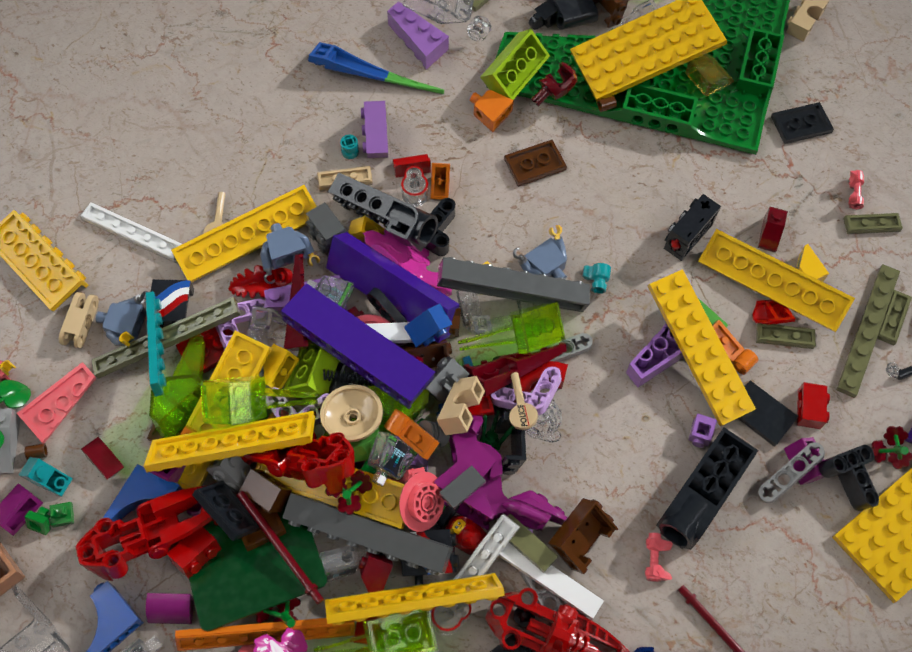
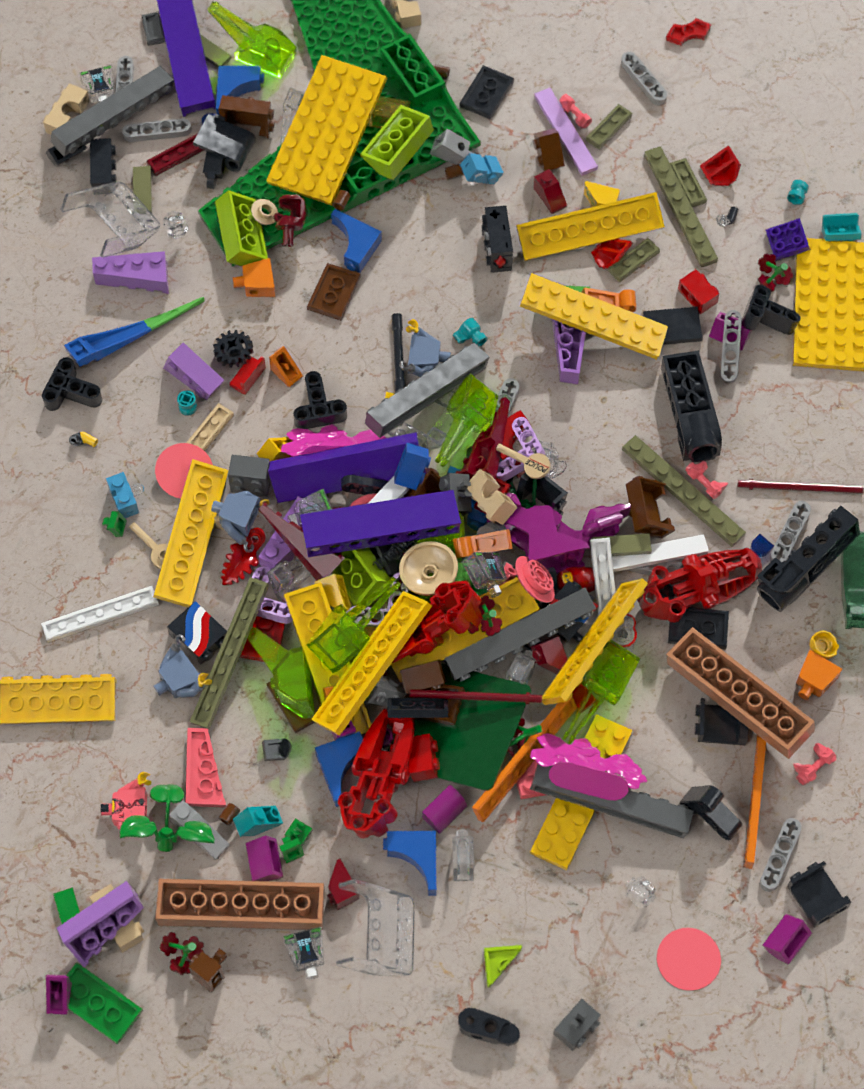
camera: 45 degrees left, 0 degrees up
(38, 584) = (336, 895): none -> dark red slope
(78, 319) = (145, 706): tan piece -> none
(102, 458) = (278, 770): dark red slope -> none
(118, 438) = (276, 749): none -> black plate
(155, 347) = (231, 655): teal plate -> none
(210, 182) = (115, 524): none -> green tile
(237, 169) = (124, 494): none -> dark azure piece
(260, 110) = (82, 438): none -> arm
(289, 65) = (69, 383): none -> black beam
(293, 176) = (174, 465): none -> coral sticker
(399, 218) = (293, 415): black brick -> none
(414, 186) = (271, 387): clear piece -> none
(421, 139) = (233, 348): none -> black gear
(462, 487) = (552, 544): dark grey tile -> none
(537, 66) = (259, 216): none -> tan piece
(555, 220) = (397, 328): none -> black piece
(591, 145) = (361, 237): none -> blue arch
(629, 552) = (684, 491): none -> olive plate
(689, 95) = (397, 141): none -> lime slope
(704, 425) = (649, 372): medium lavender brick -> none
(715, 155) = (453, 171): none -> reddish brown hinge
(728, 135) = (450, 147): none -> light grey torso
(735, 169) = (481, 169): none -> dark azure piece
(782, 81) = (443, 71): none -> reddish brown hinge
(803, 197) = (548, 149): none -> reddish brown brick
(833, 199) = (568, 135): none -> lavender tile

